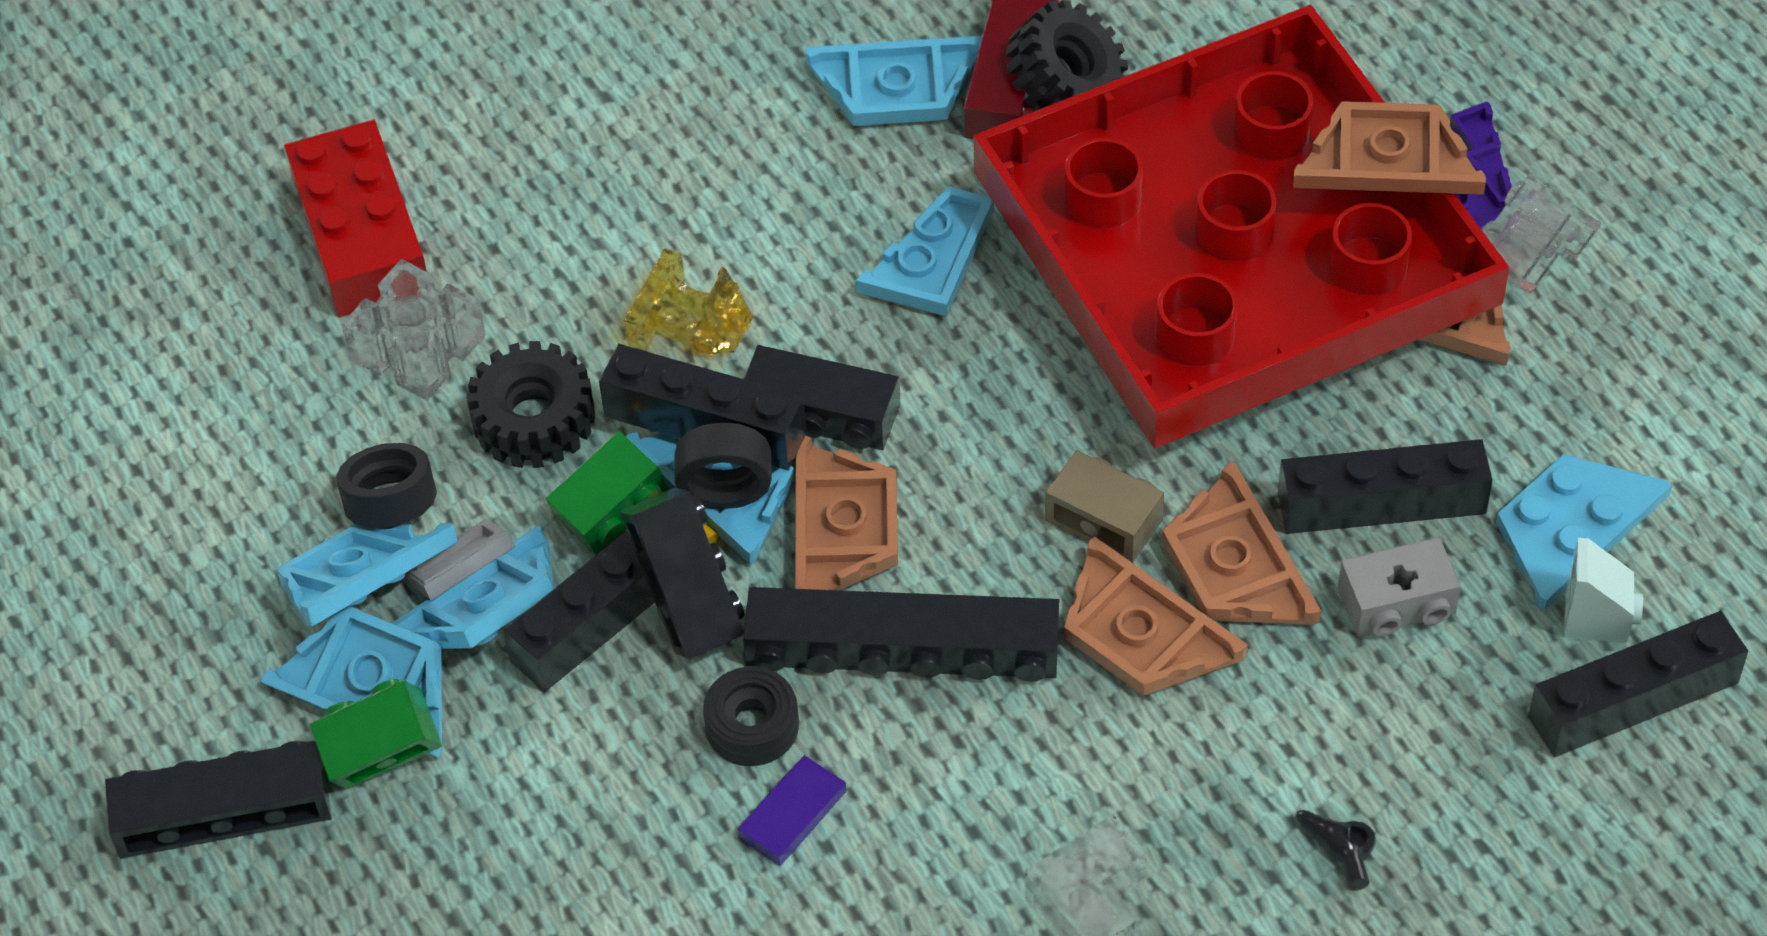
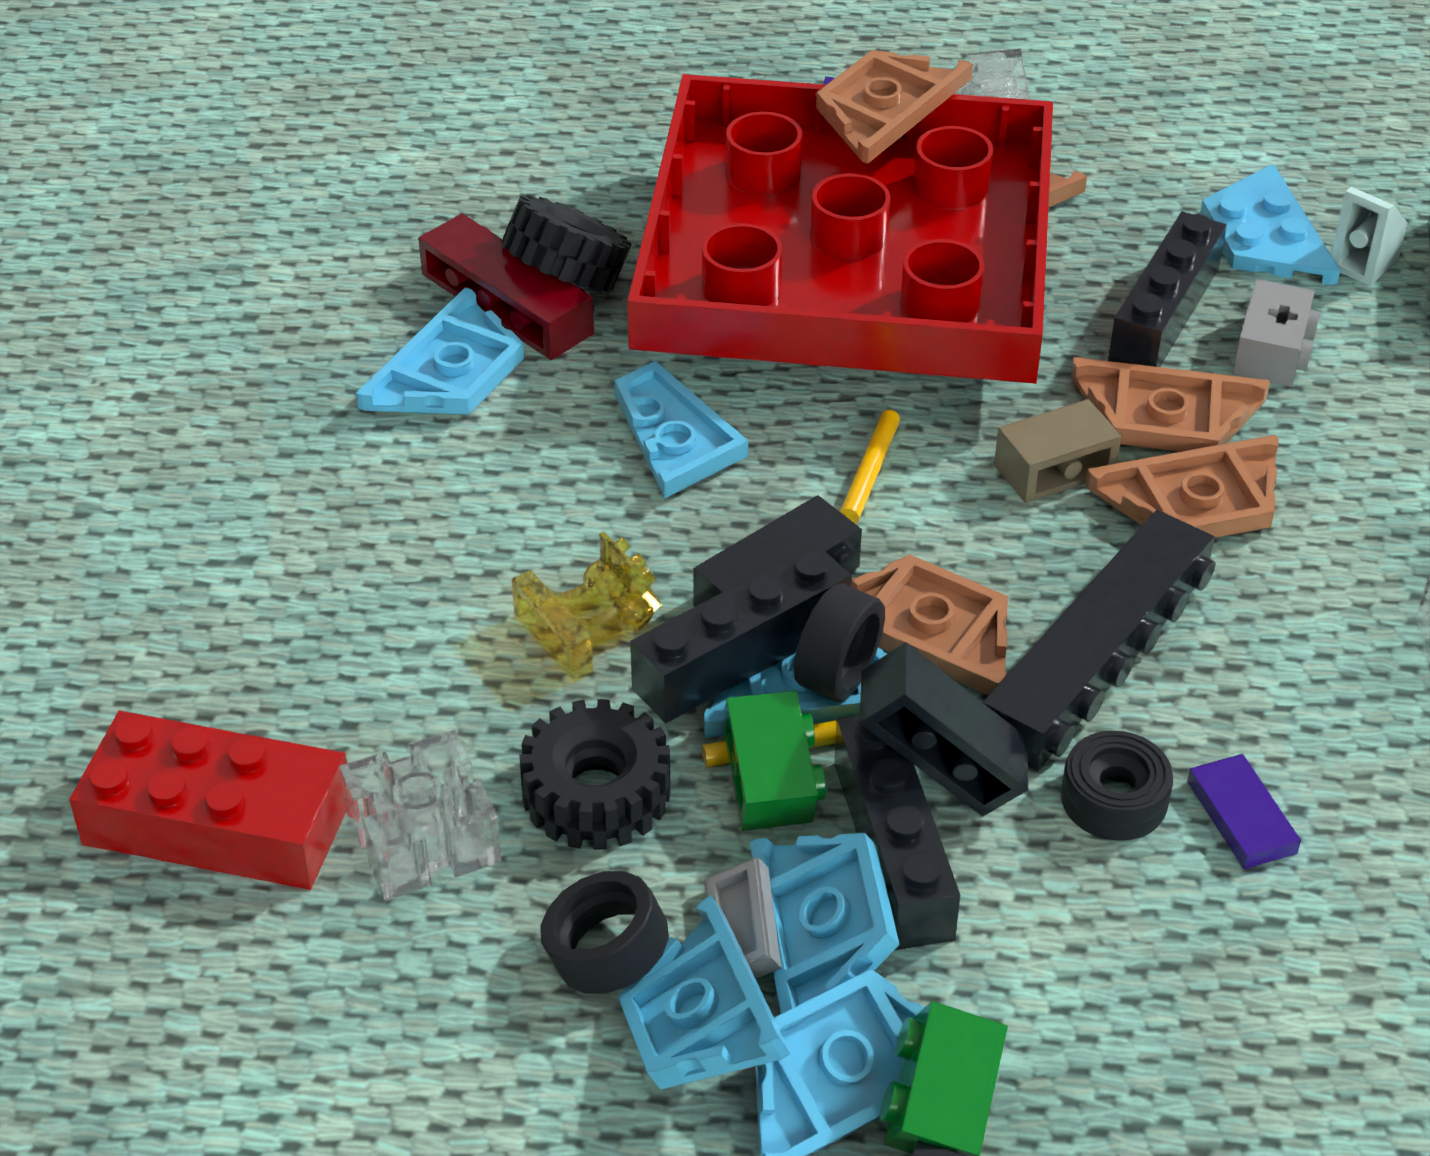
camera: 60 degrees left, 10 degrees down
(999, 398) = (870, 465): none -> yellow bar

